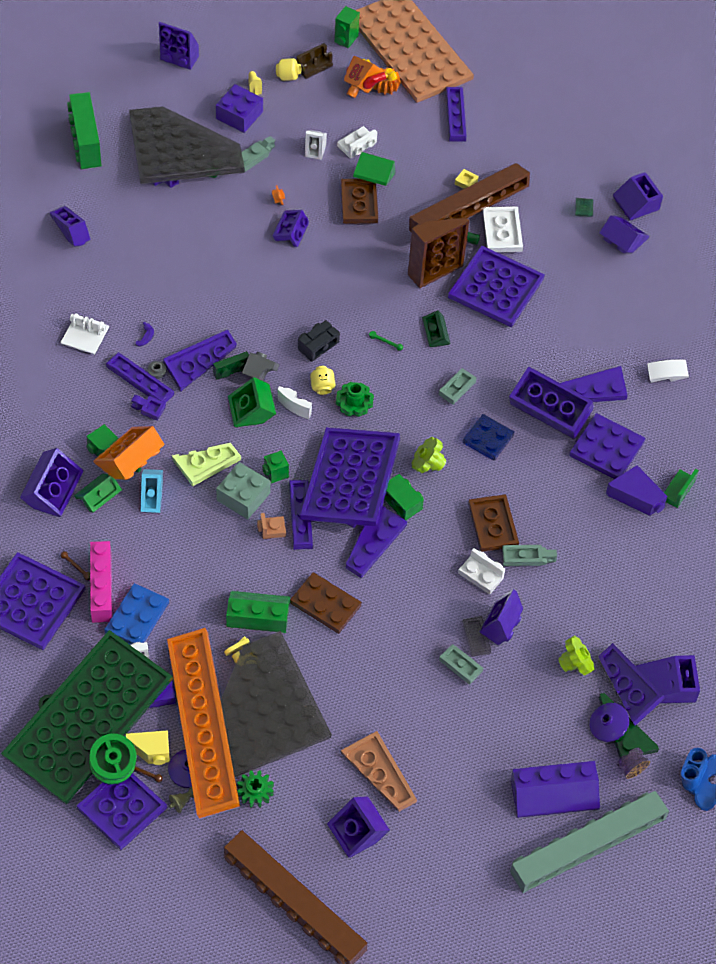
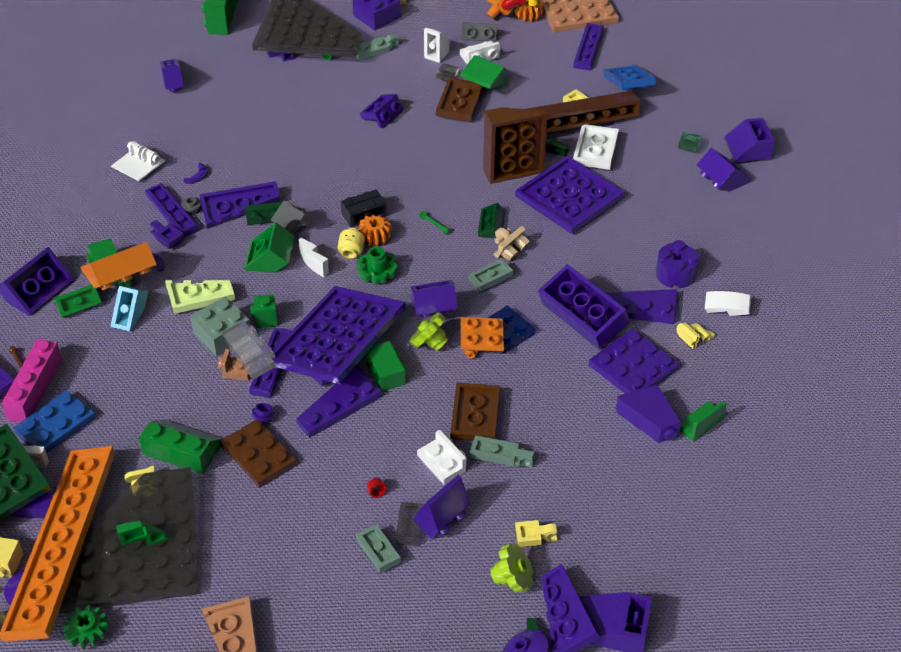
camera: 20 degrees right, 10 degrees down
(266, 698) = (140, 530): none -> green slope
(278, 195) = (381, 81): orange plate -> none
(284, 510) = (249, 349): none -> clear brick
(315, 565) = (263, 412): none -> dark purple plate
(336, 172) = (447, 71): none -> clear smoke plate
(339, 361) = (375, 229): none -> orange gear
(348, 117) = (479, 31): none -> dark grey hinge
(422, 423) = (434, 298): none -> dark purple slope
(438, 611) = (379, 491): none -> red hinge
(461, 356) = (507, 241): none -> tan hips
(473, 449) = (481, 334): none -> orange hinge
(509, 146) = (629, 77): none -> blue plate
(579, 622) = (530, 533): none -> light yellow plate
(614, 341) = (677, 264): none -> dark purple brick
(647, 406) = (692, 333): none -> light yellow piece

